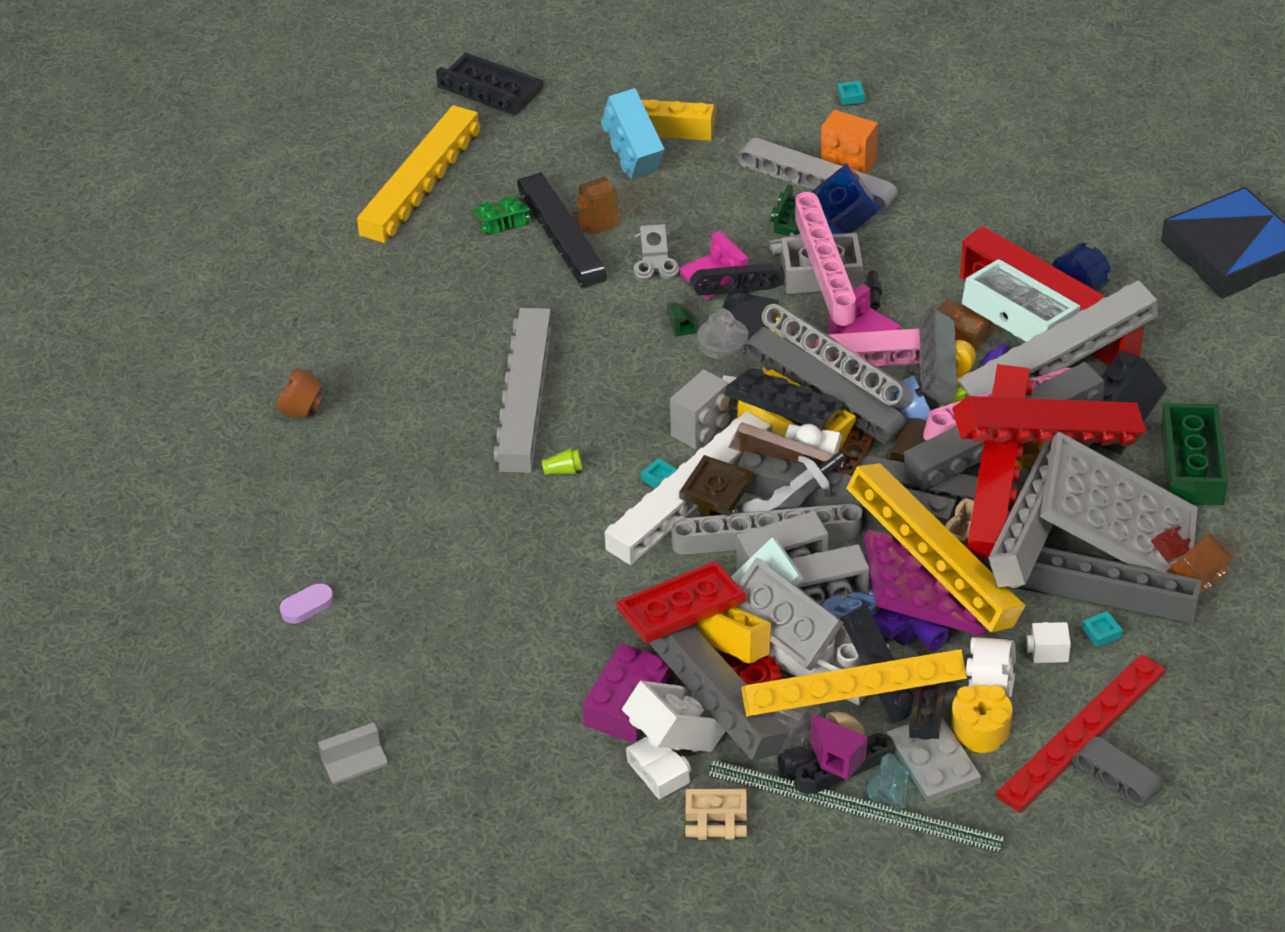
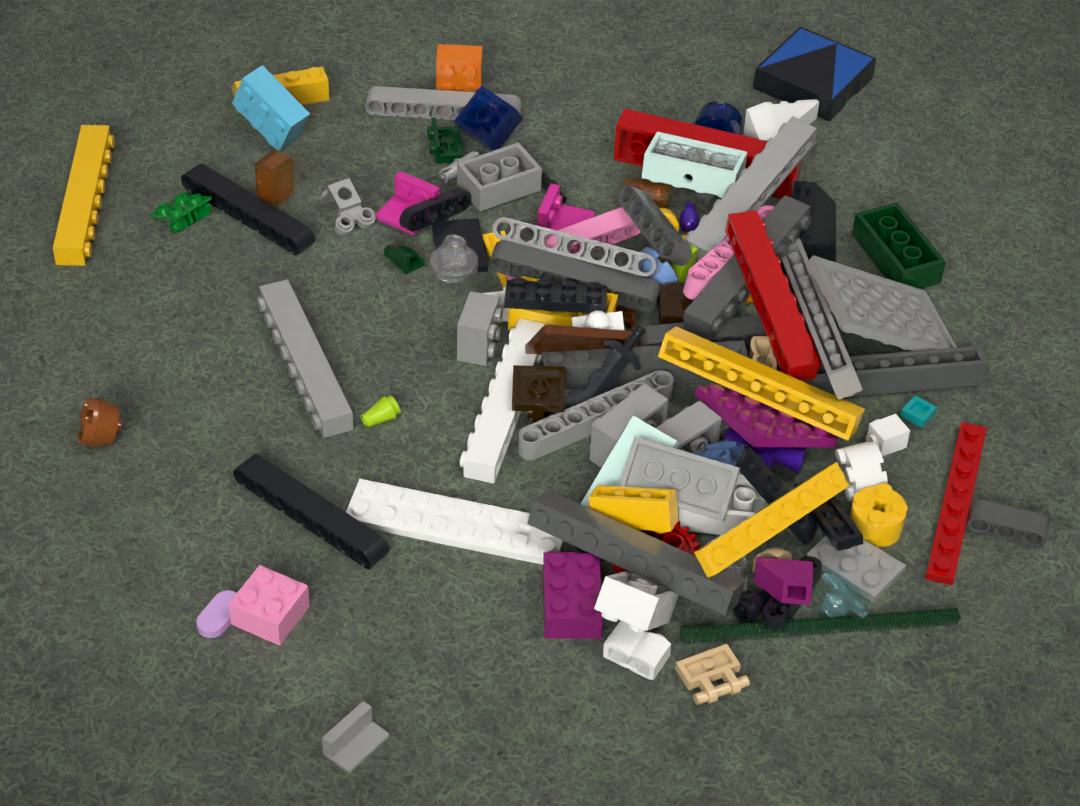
camera: 30 degrees left, 0 degrees up
(350, 609) = (269, 605): none -> bright pink brick
(443, 536) = (312, 510): none -> black beam
(489, 83) = (98, 99): black bracket -> none
(556, 584) = (450, 521): none -> white plate
(657, 472) = (472, 396): teal plate -> none
(681, 602) = (588, 497): red tile -> none
(825, 259) = (511, 169): bright pink beam -> none
(851, 92) = (427, 30): teal plate -> none
(1041, 419) = (794, 249): red brick -> none
(1165, 283) = (766, 118): none -> white wedge
(1171, 544) = (934, 325): clear red tile -> none
(1203, 562) = (963, 330): clear orange piece -> none

